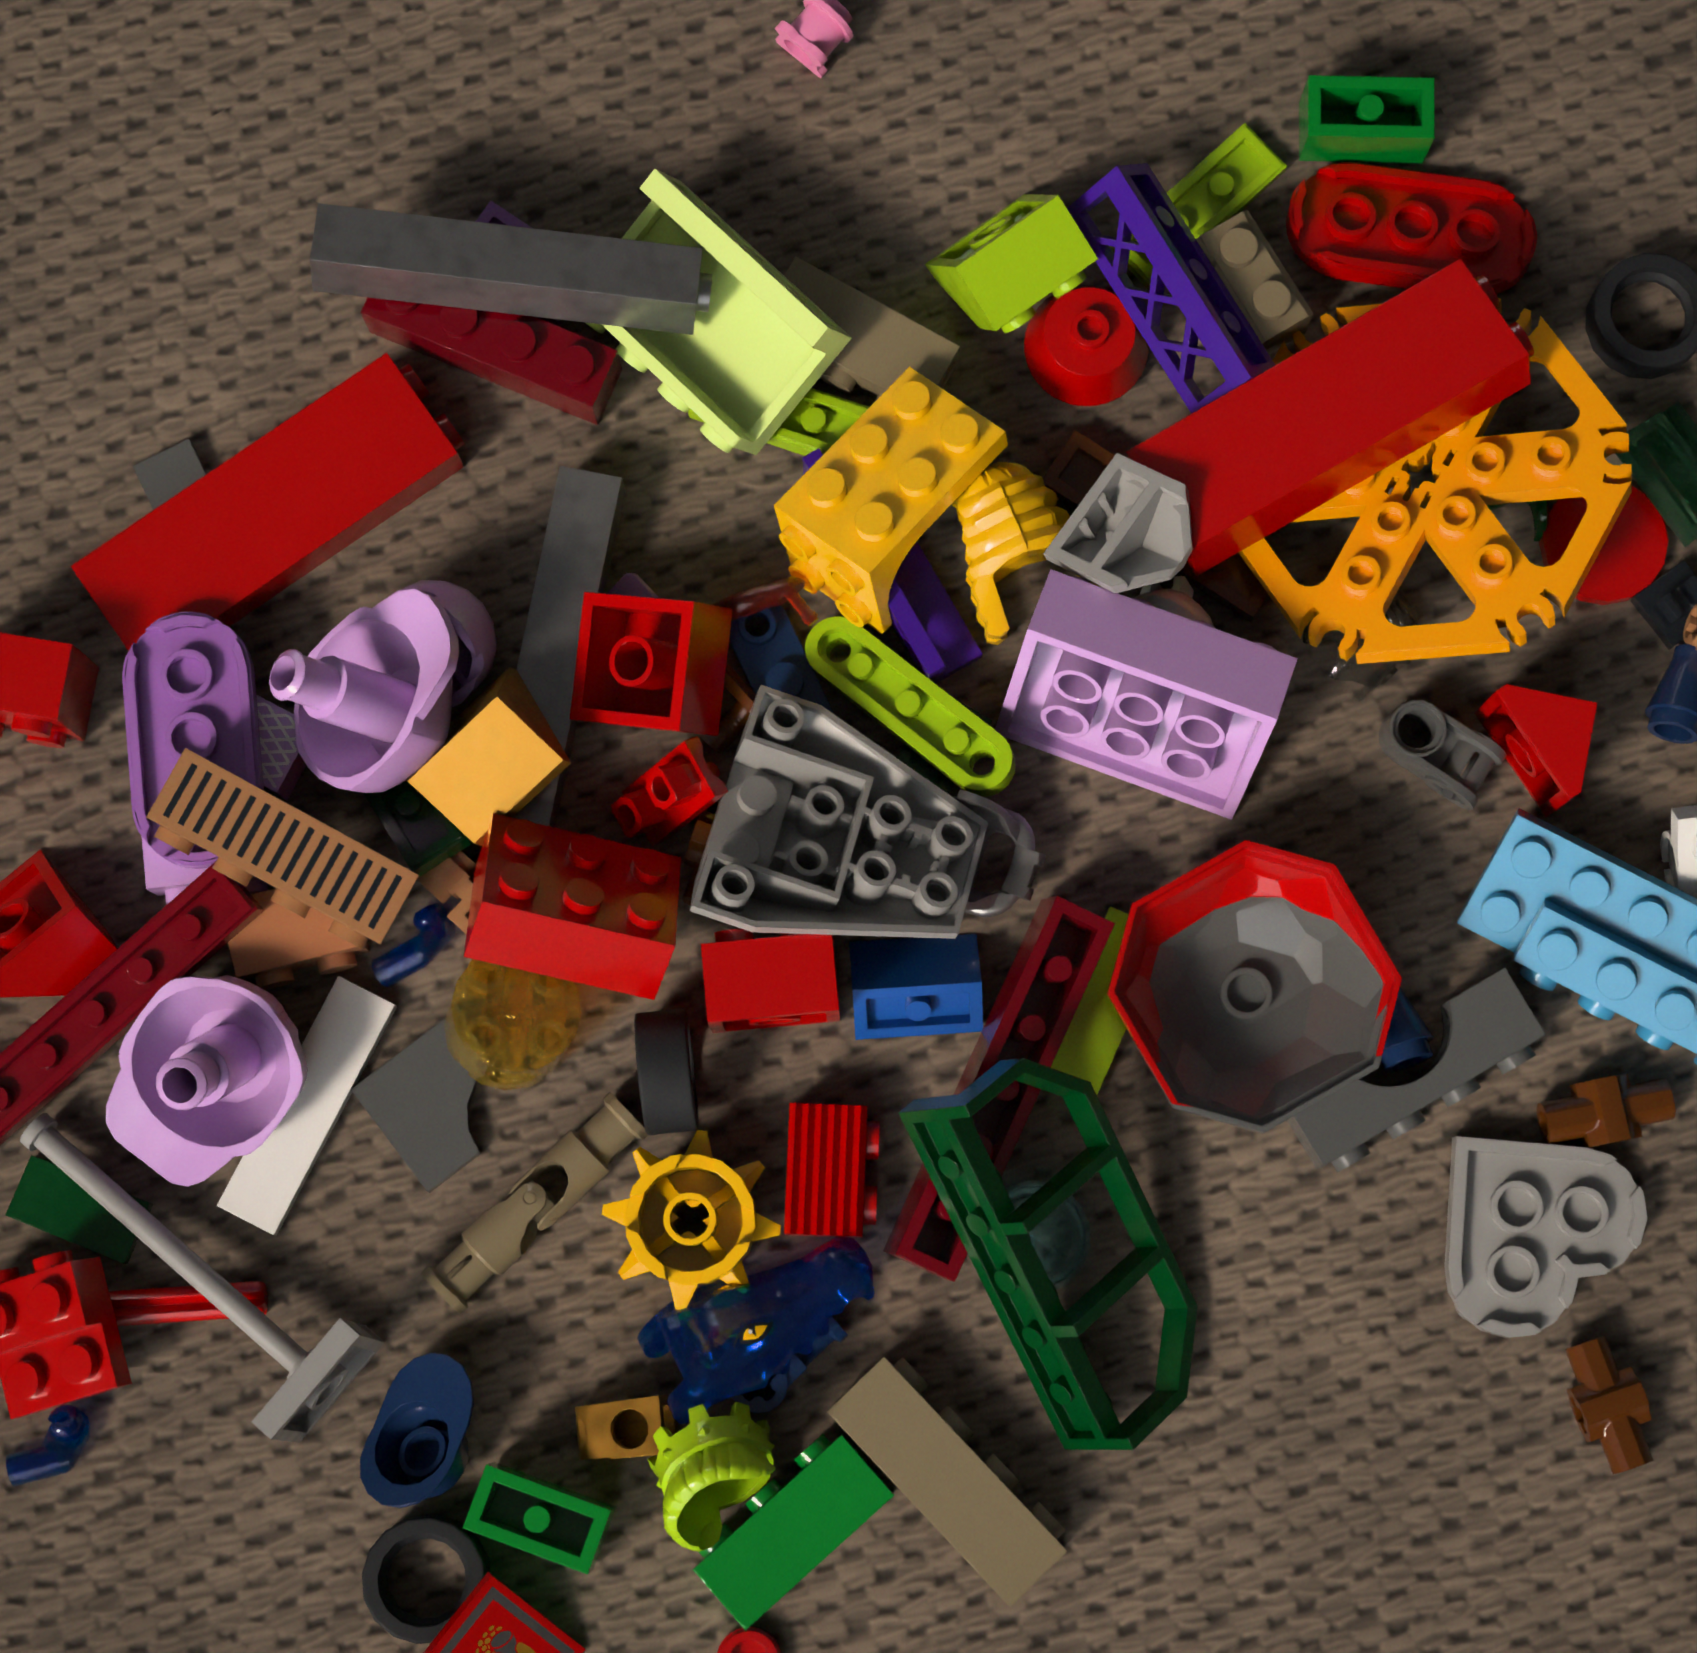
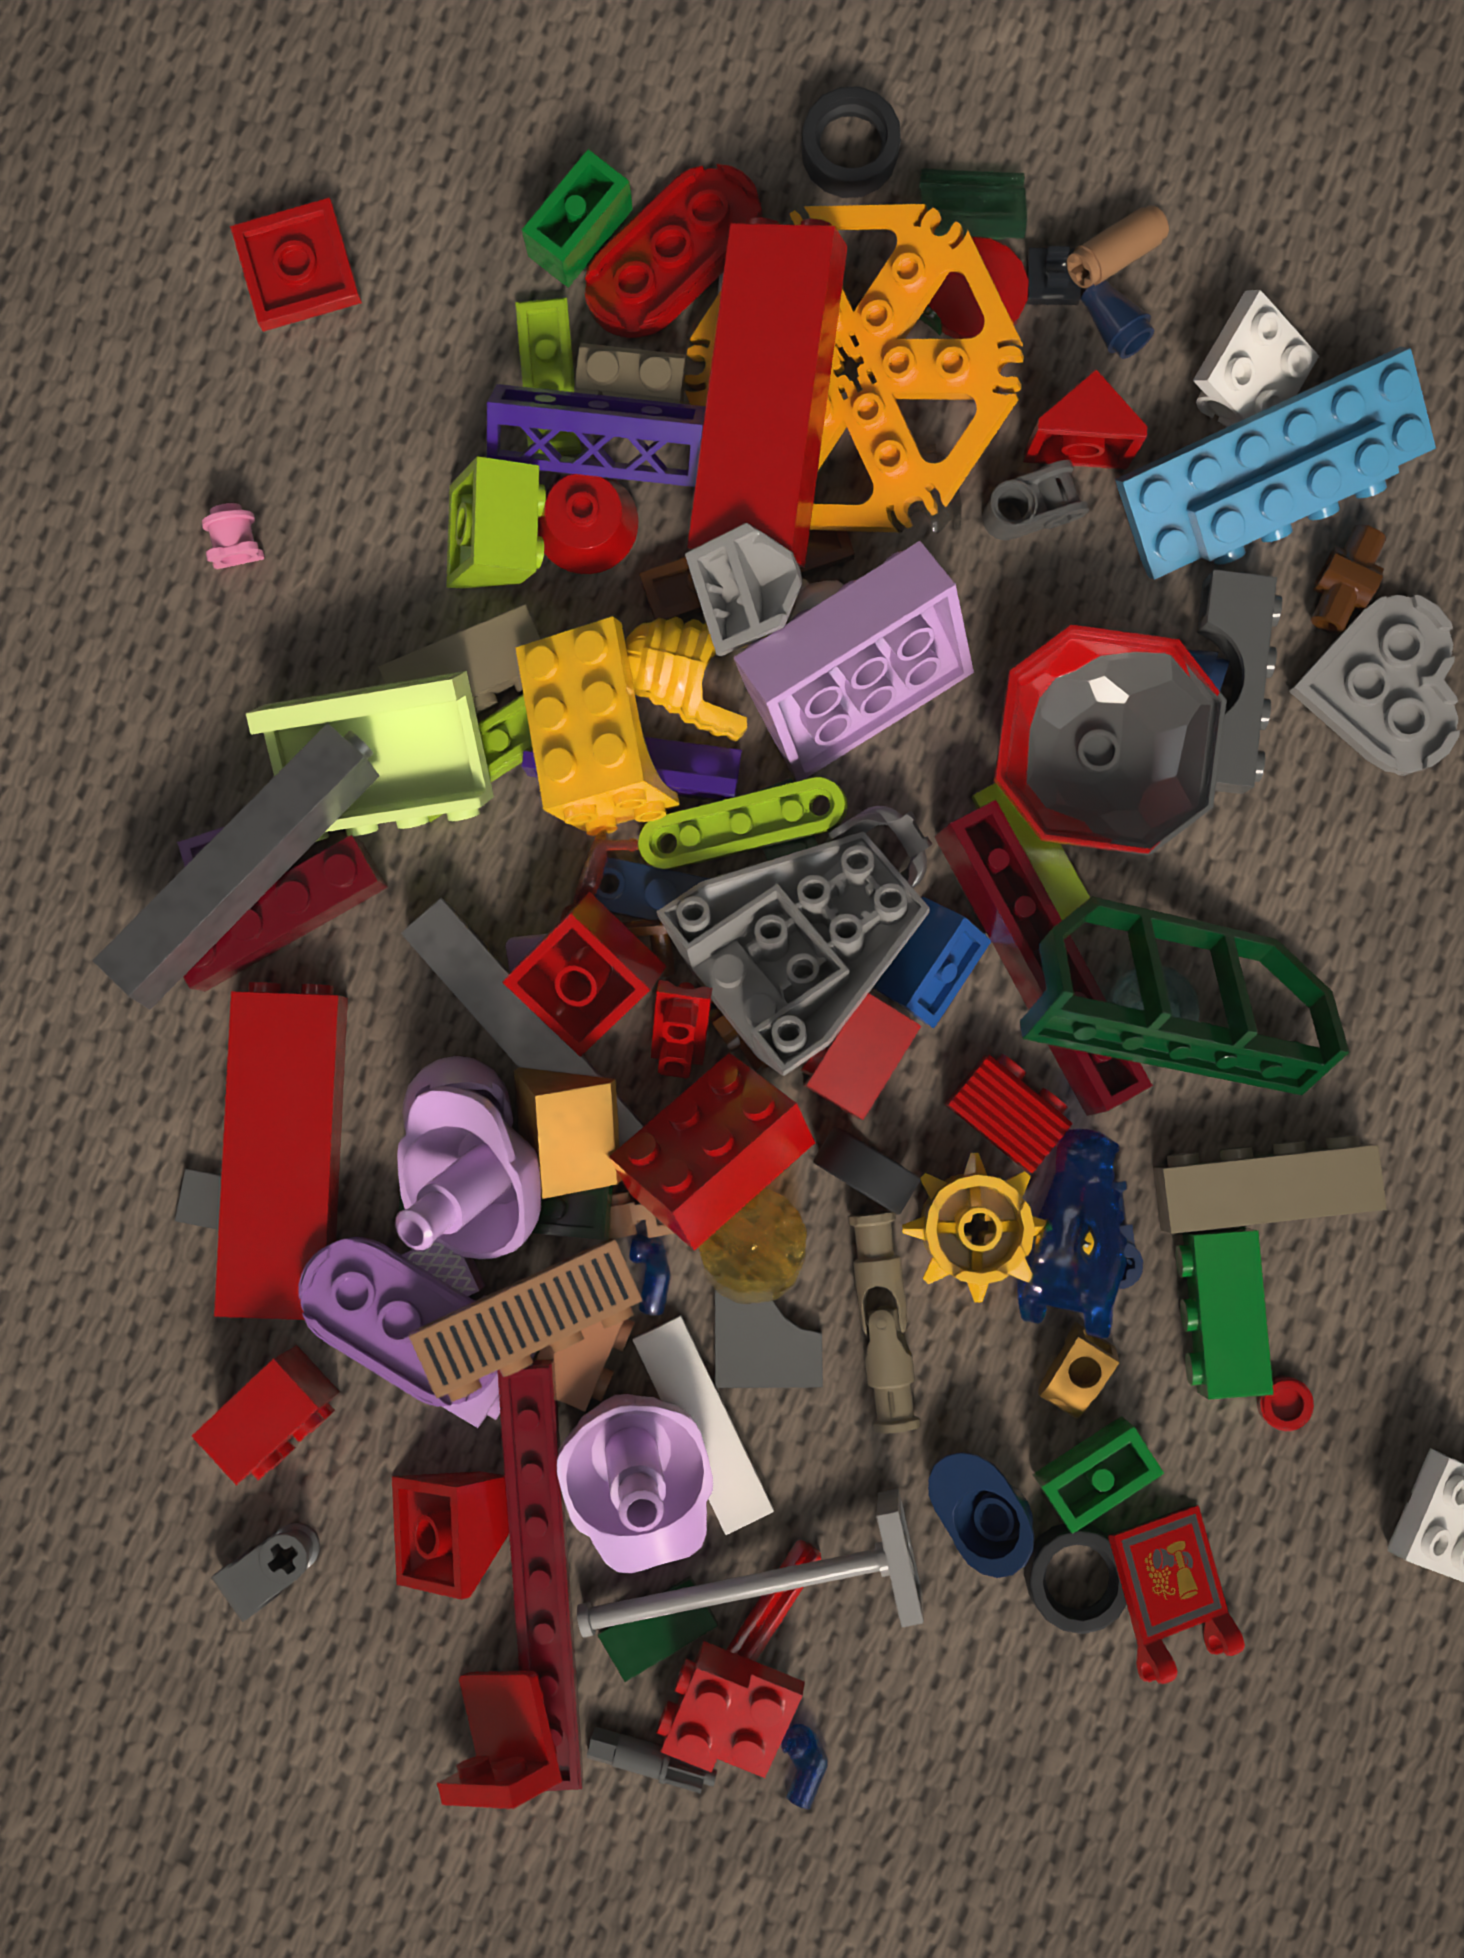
camera: 50 degrees left, 5 degrees up
(709, 1469) = (1151, 1338): lime hair -> none

